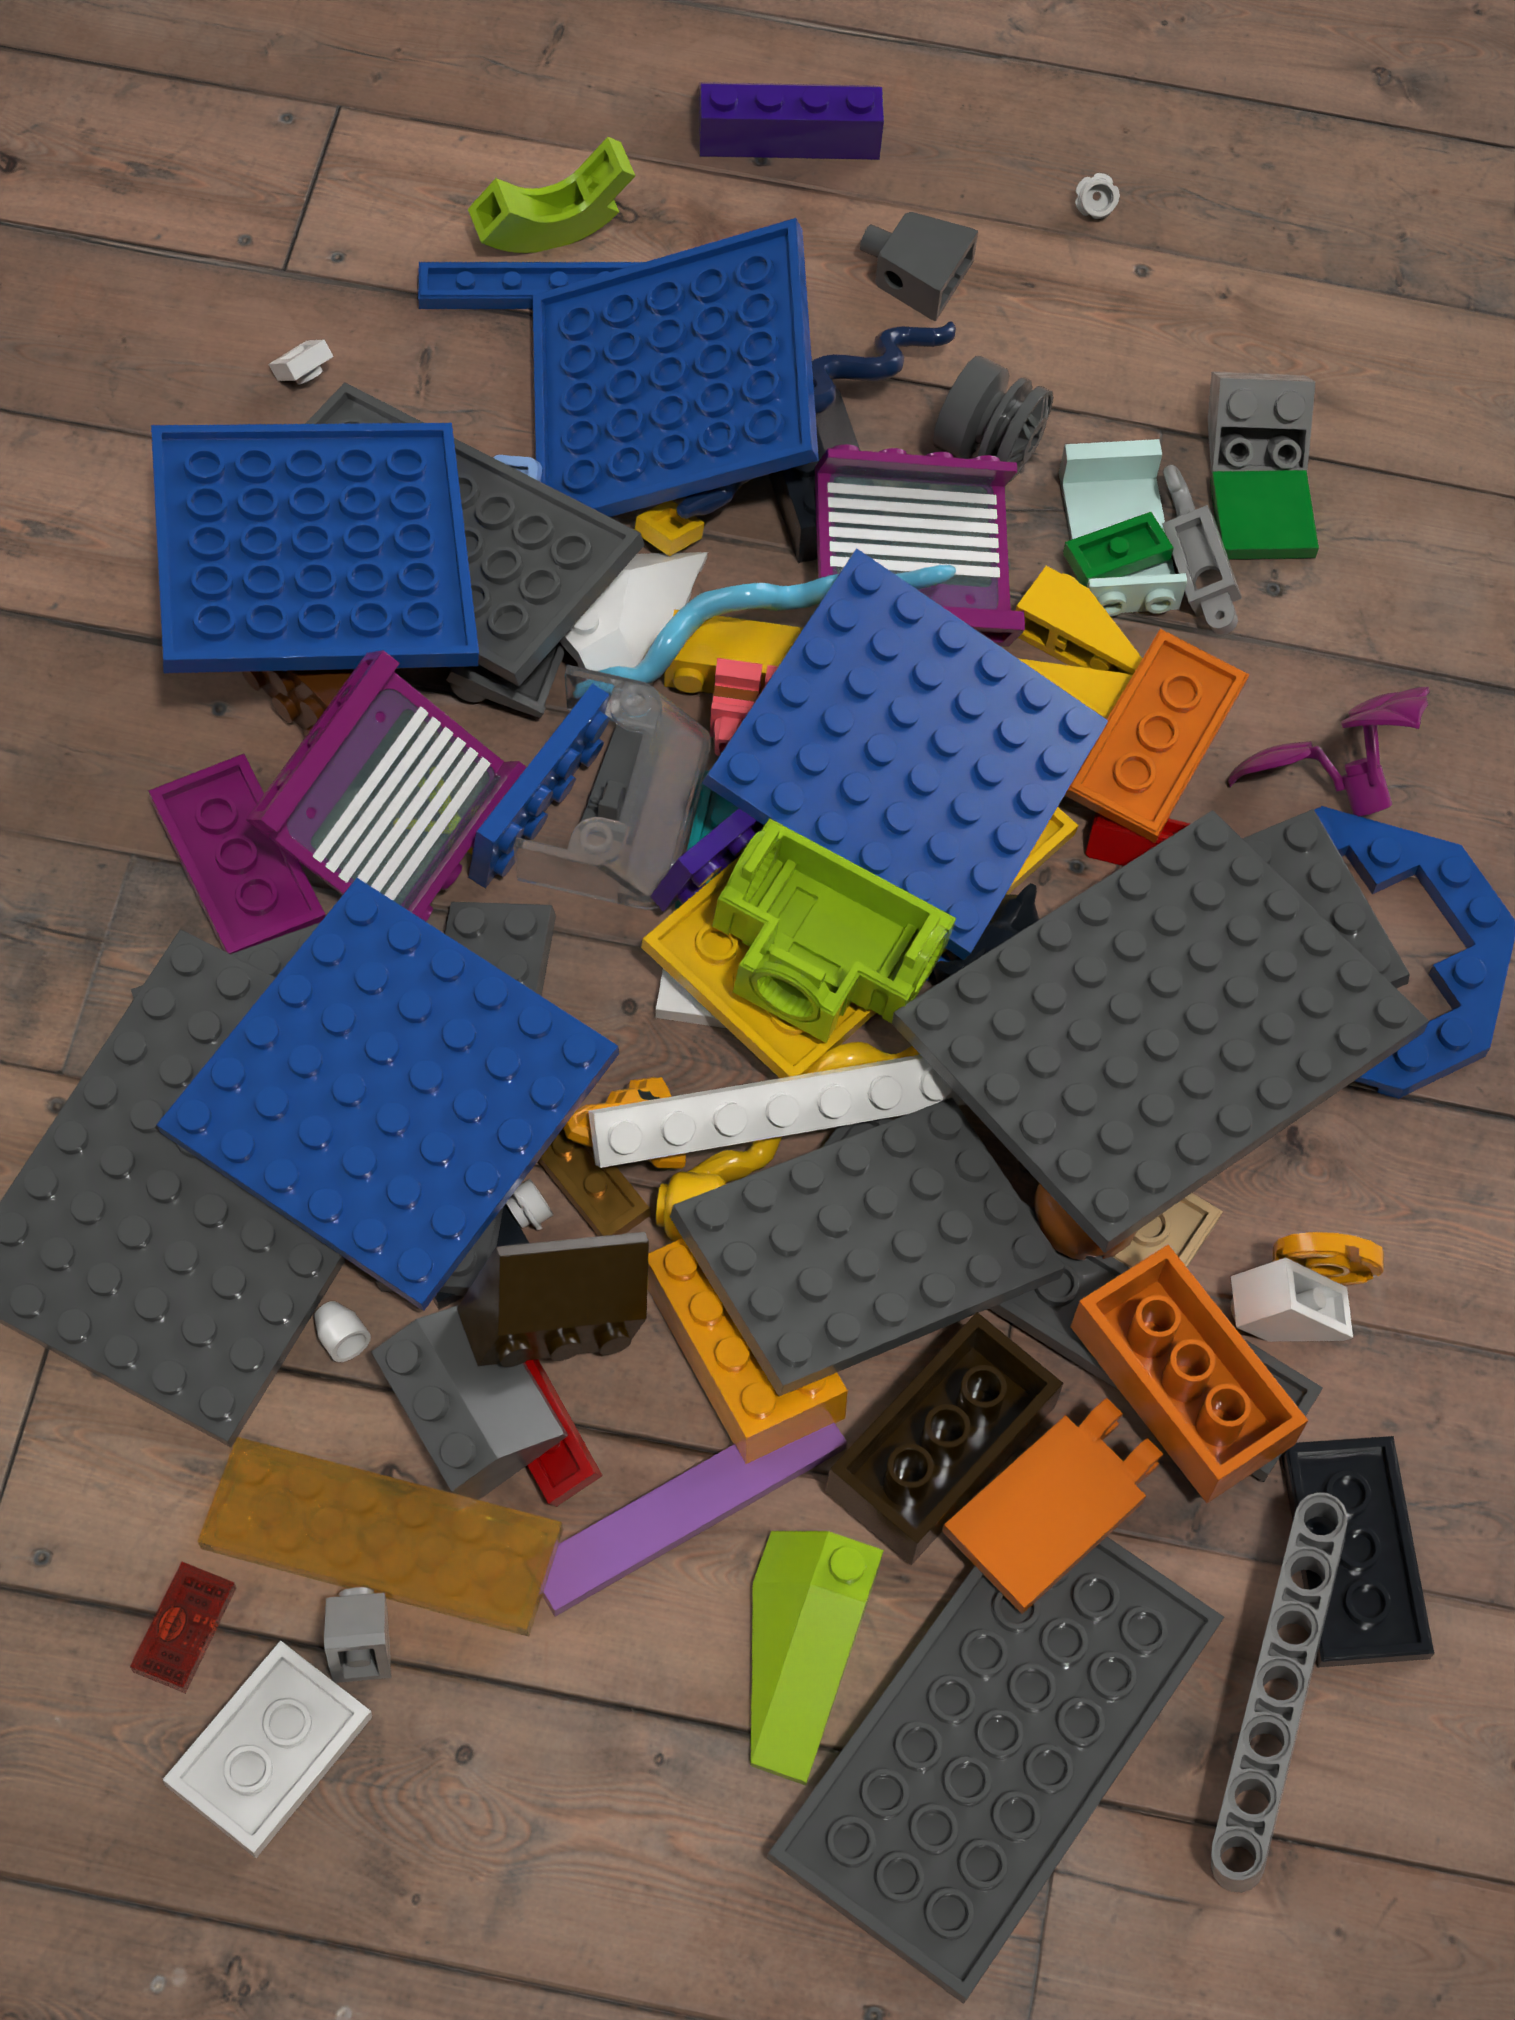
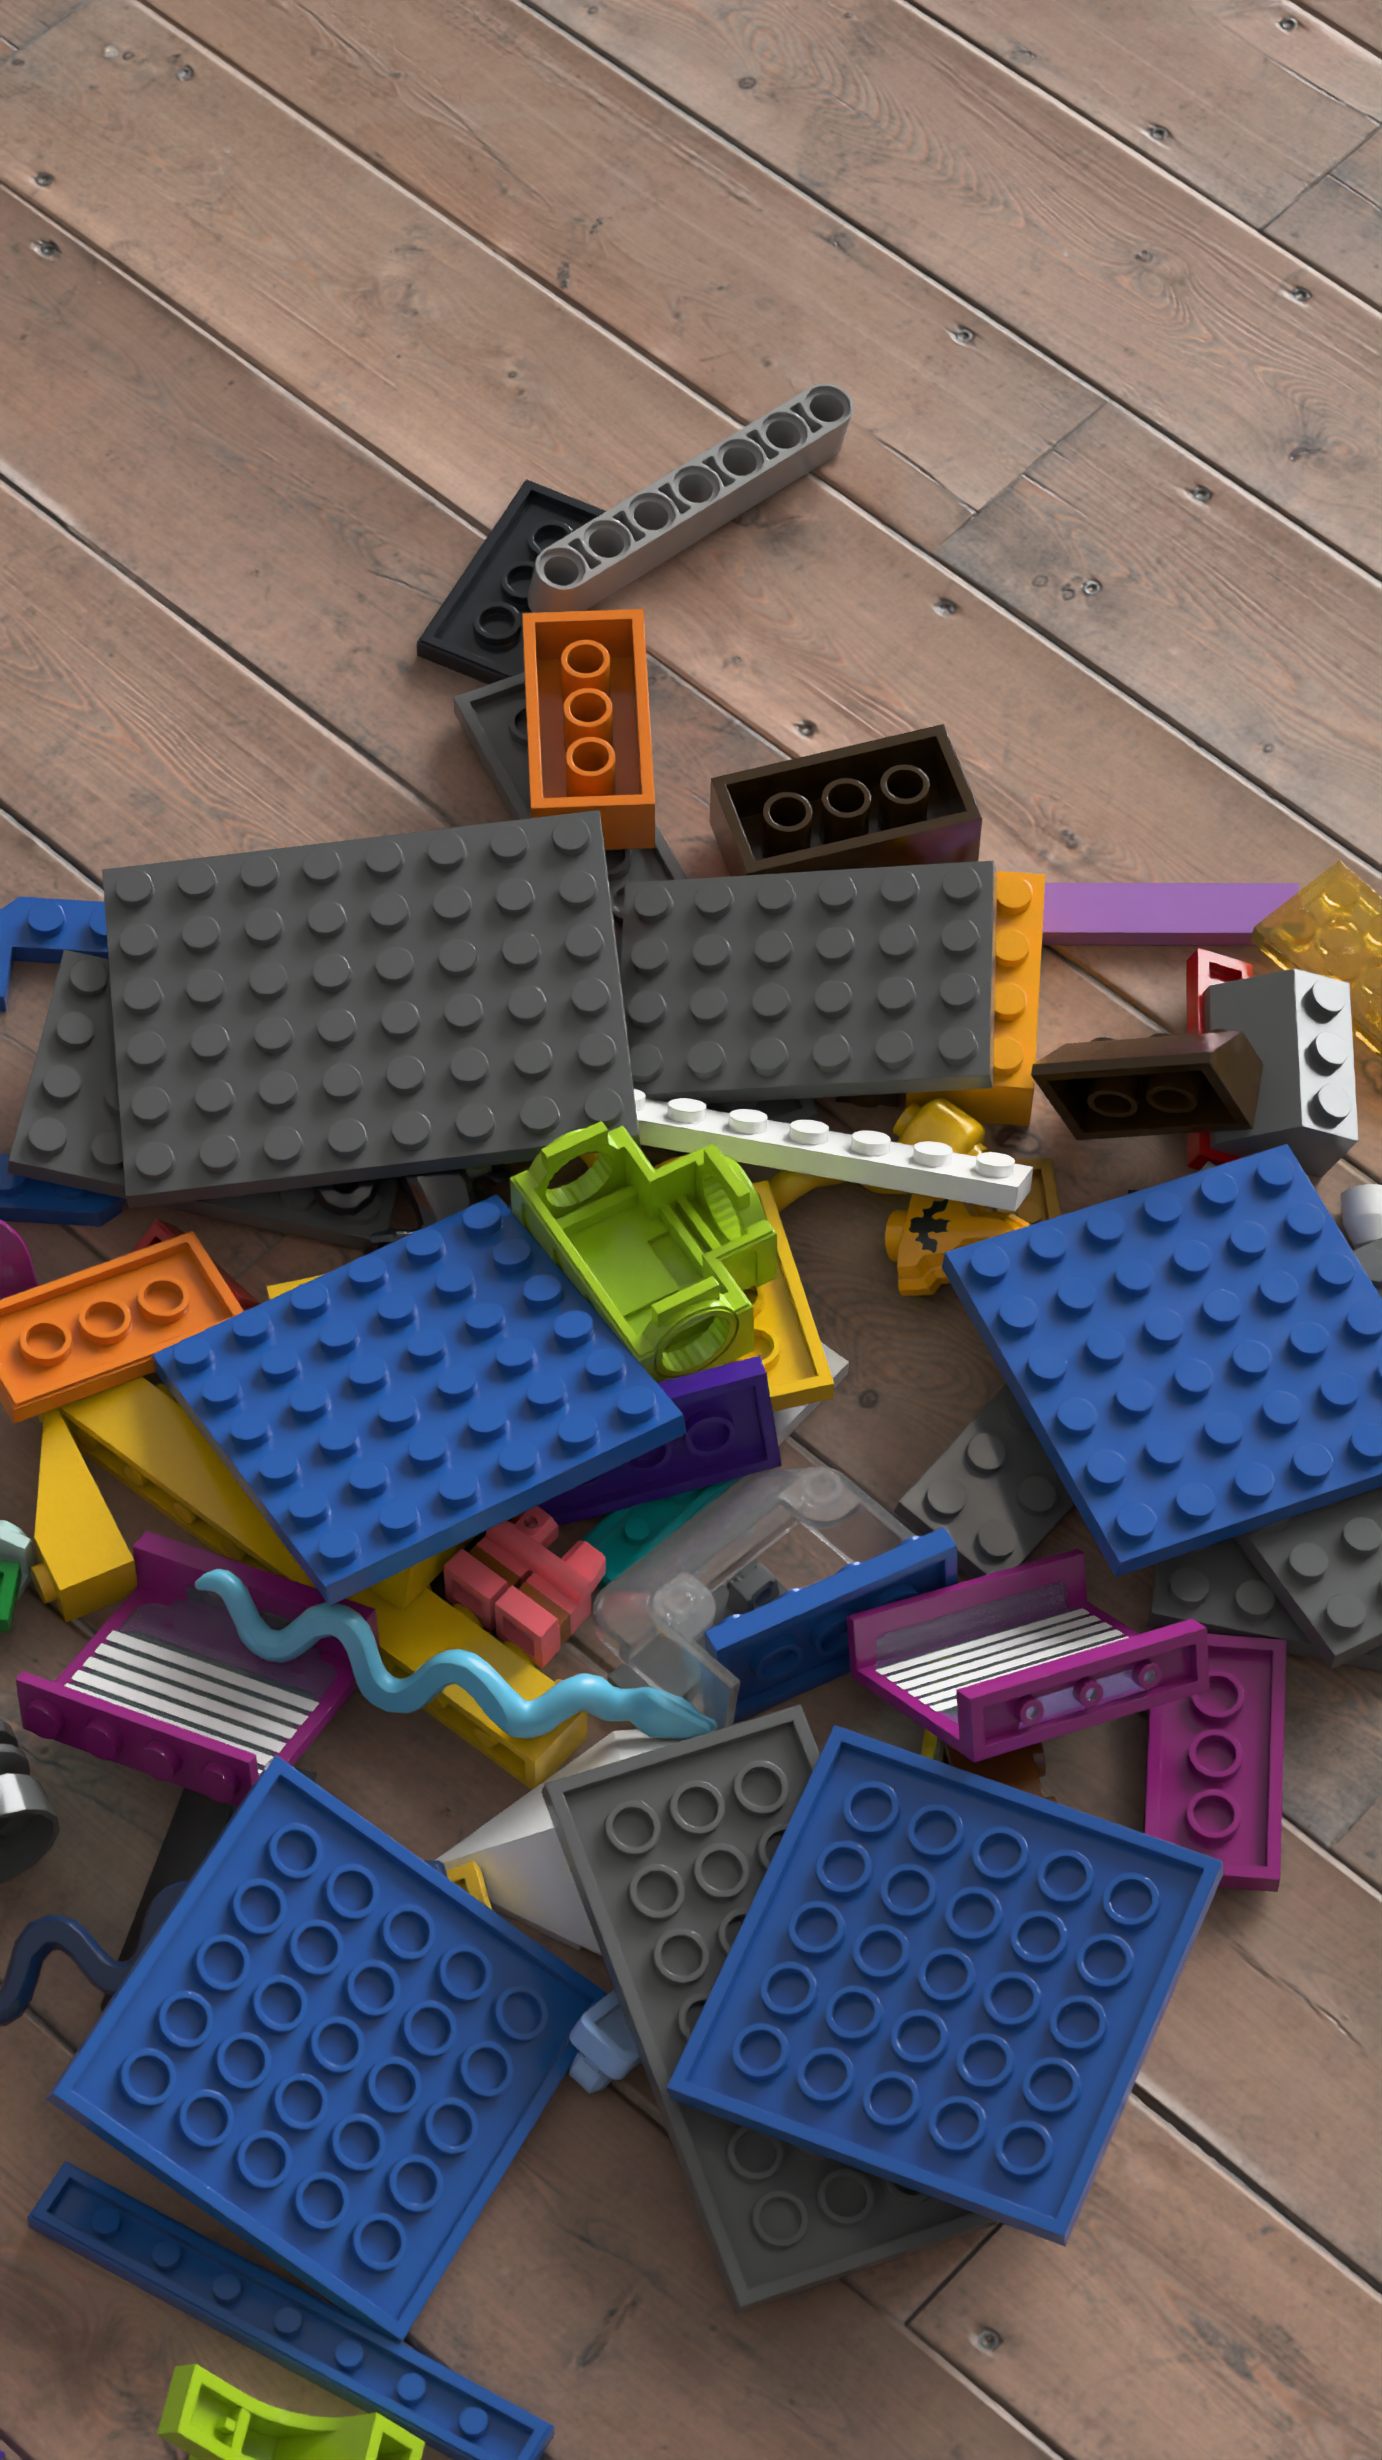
camera: 145 degrees left, 5 degrees down
(301, 362) = (770, 2398): white plate -> none
(803, 1629) = (1072, 757): lime wedge -> none
(992, 1758) = (957, 604): dark grey plate -> none
(1052, 1506) = (776, 713): orange tile -> none
(1290, 1304) = (425, 776): white slope -> none
(1333, 1255) = (363, 774): light orange tile -> none

